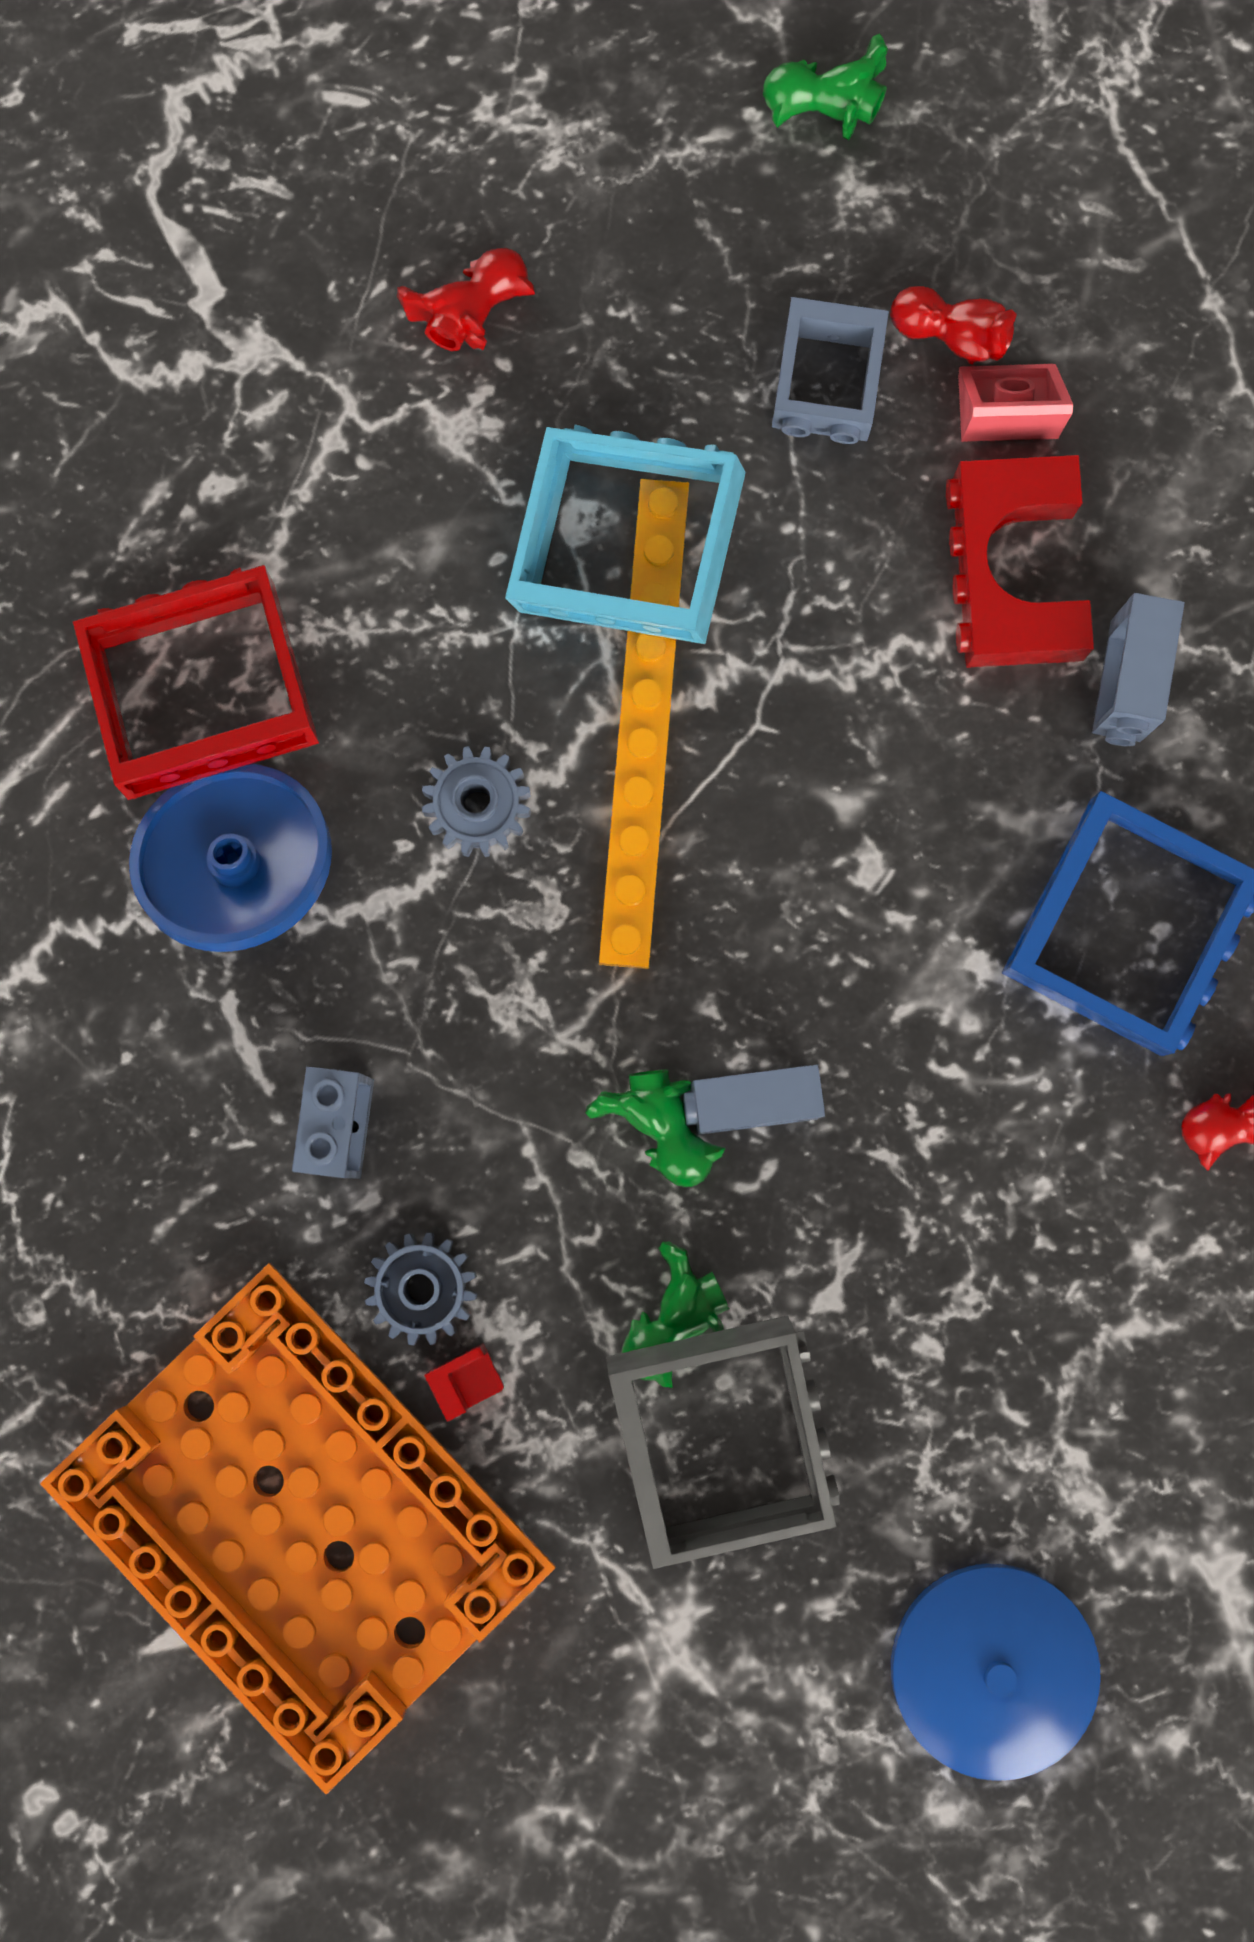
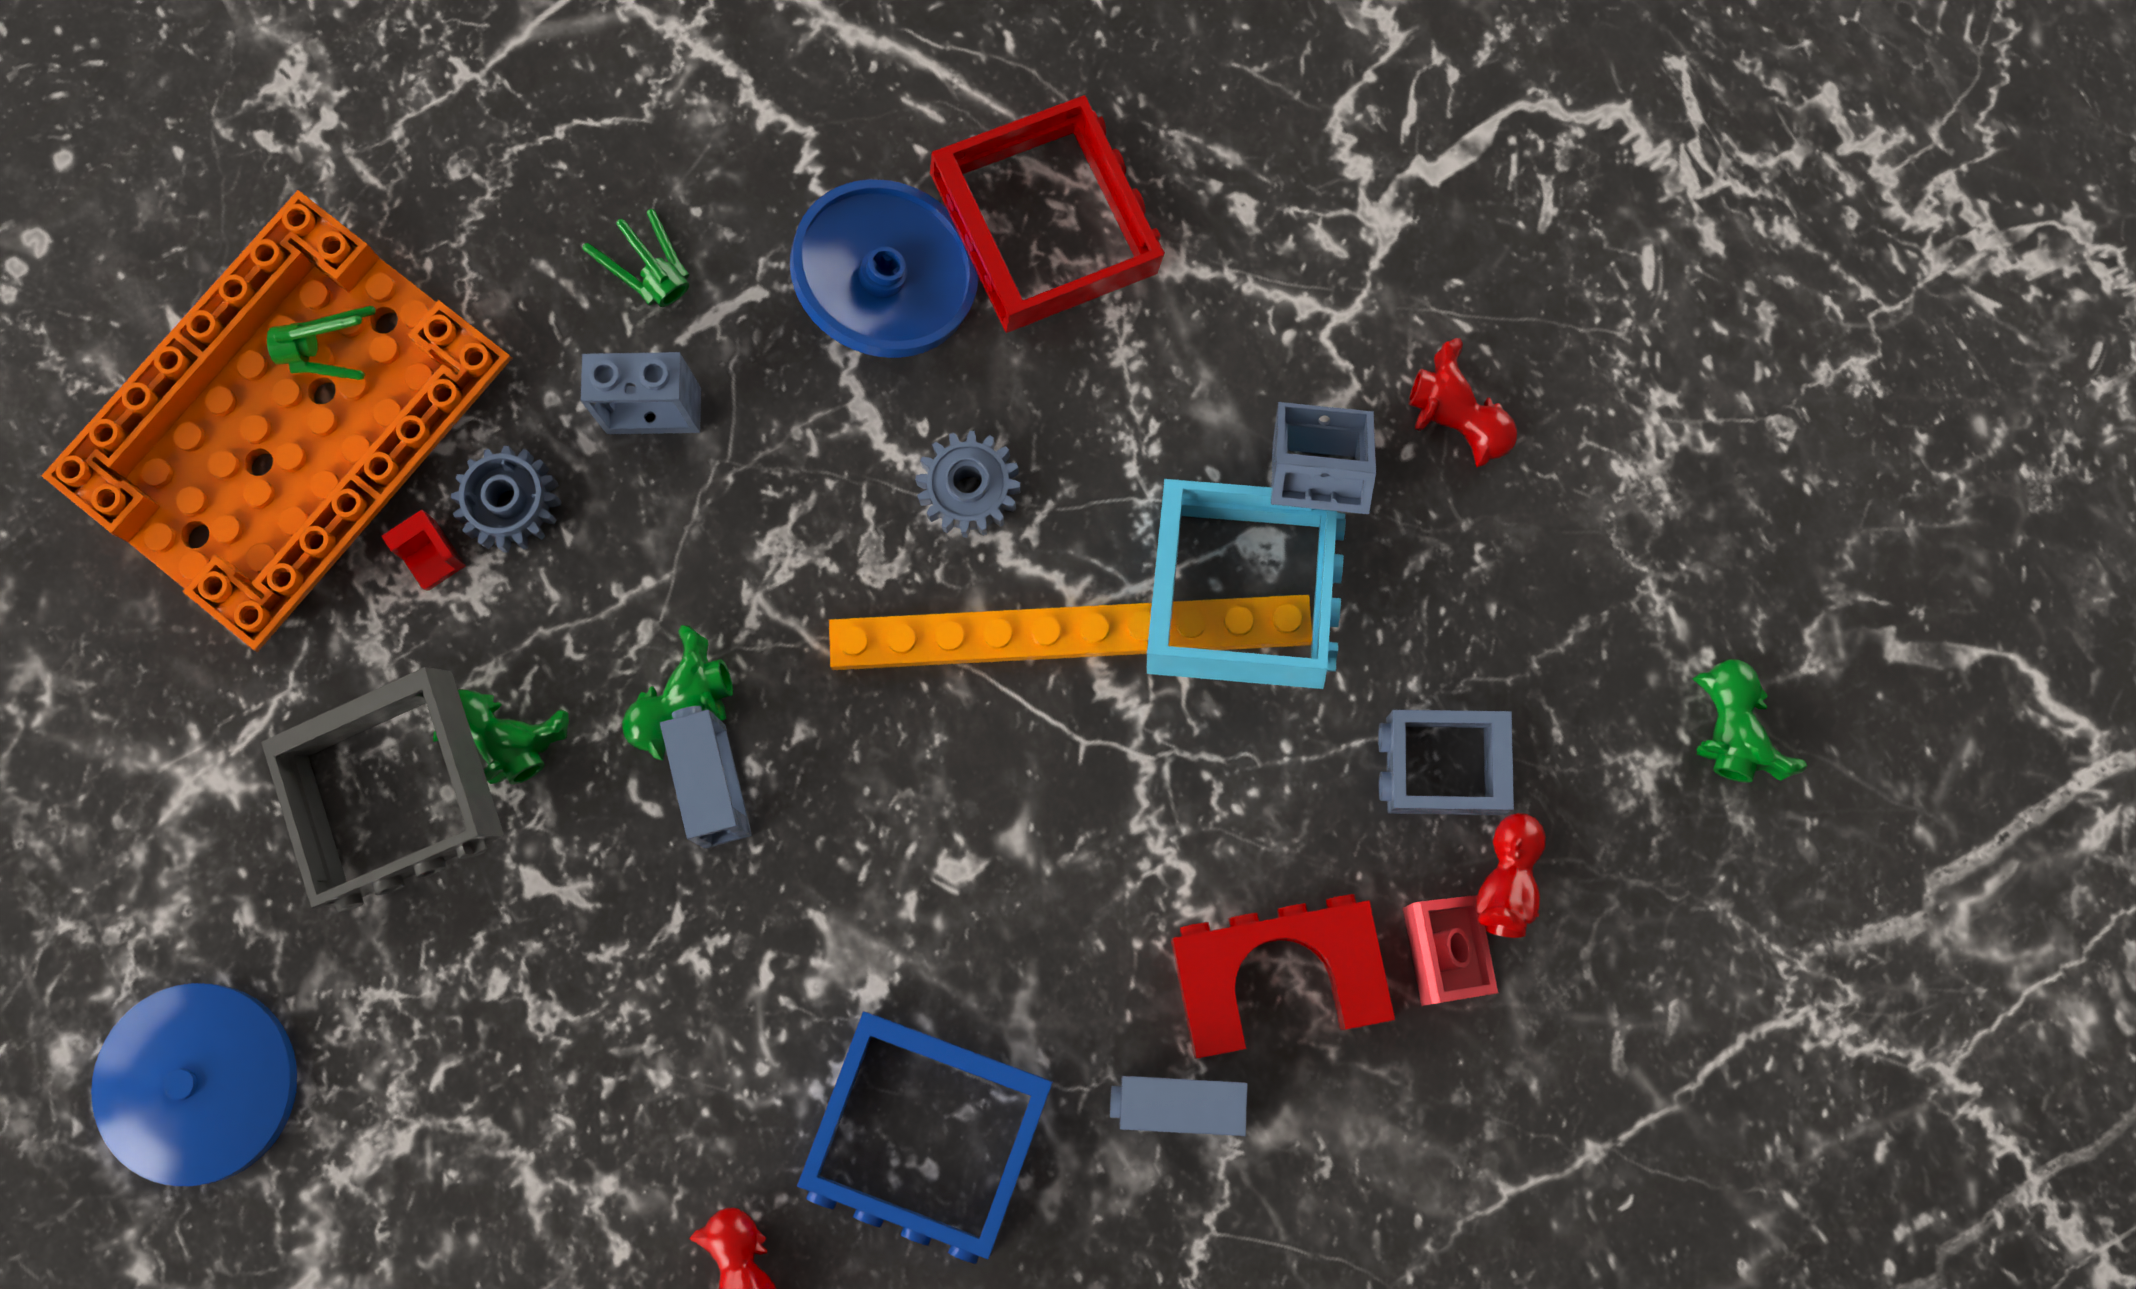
camera: 85 degrees right, 5 degrees down
(200, 1097) = (662, 280): none -> green plant
(215, 1497) = (298, 342): none -> green plant
(538, 440) = (1317, 480): none -> sand blue window

